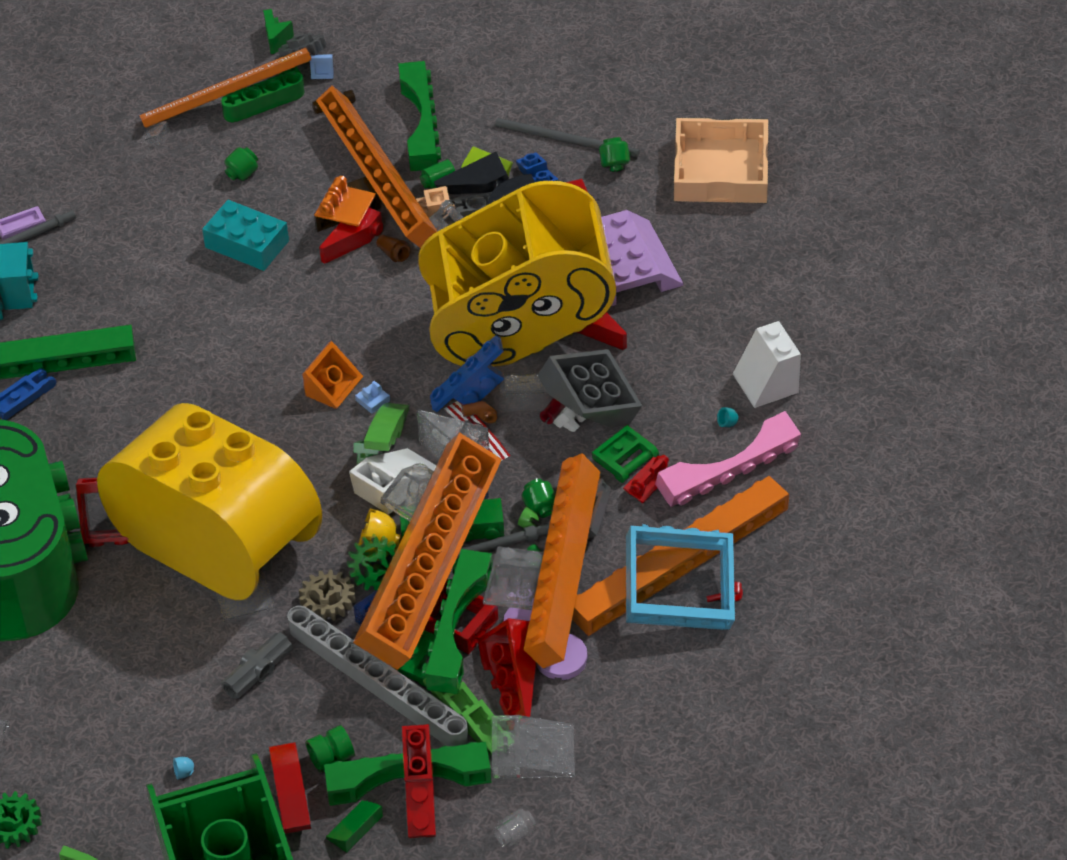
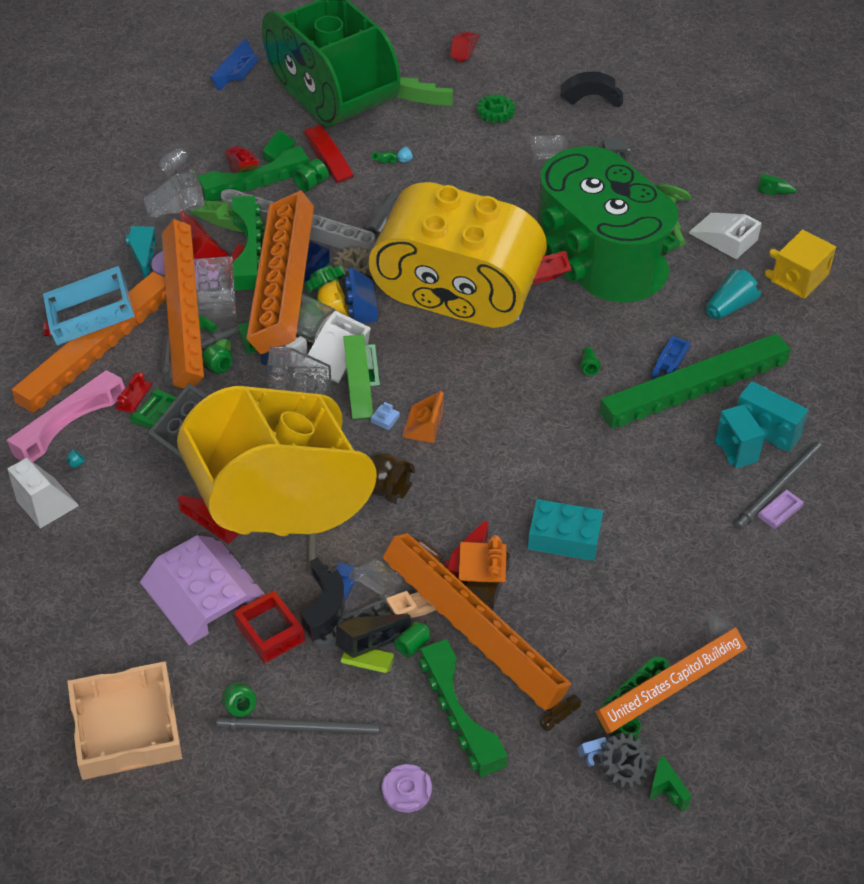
camera: 160 degrees right, 0 degrees up
(114, 408) = (589, 362): none -> green cone
(215, 769) = (385, 157): none -> green arm
(241, 164) = (612, 607): green head -> none
(340, 532) = (361, 296): none -> blue slope
(400, 312) = (392, 476): none -> dark brown tile
(490, 77) = (409, 795): none -> lavender tile
(537, 166) = (315, 672): blue slope -> none
(592, 685) = (142, 246): none -> teal slope

